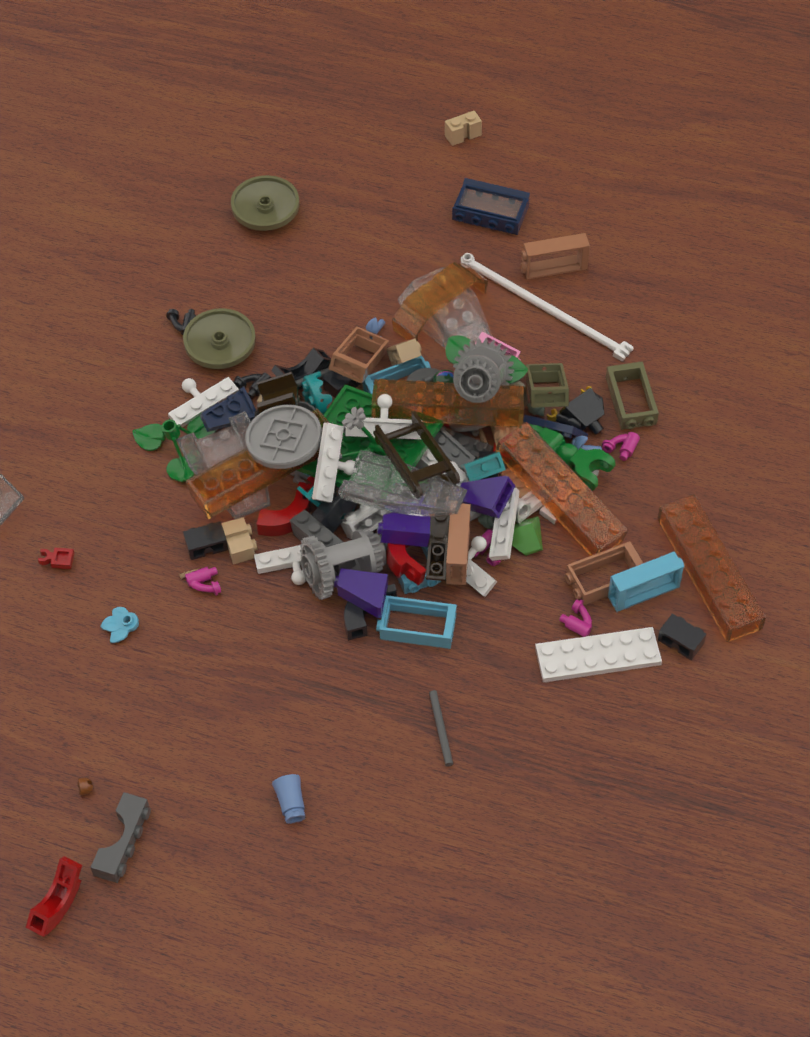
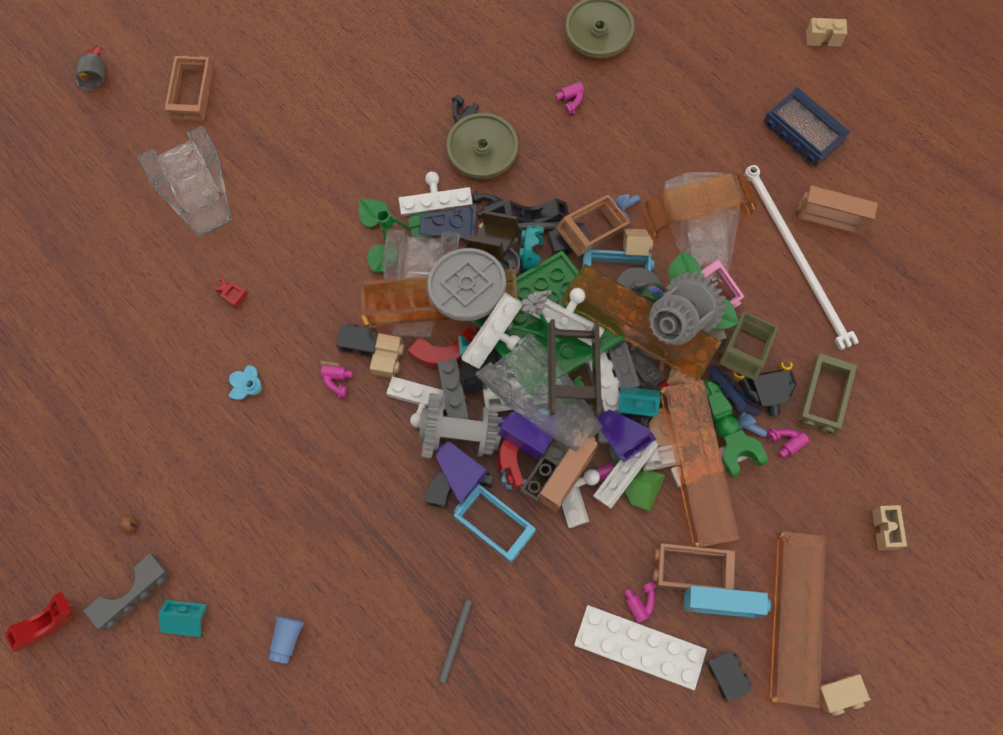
camera: 30 degrees right, 15 degrees up
(185, 834) = (182, 618): none -> teal panel
(270, 265) = (574, 90): none -> dark pink plant
(740, 464) = (891, 528): none -> tan brick
(779, 602) = (843, 694): none -> tan brick

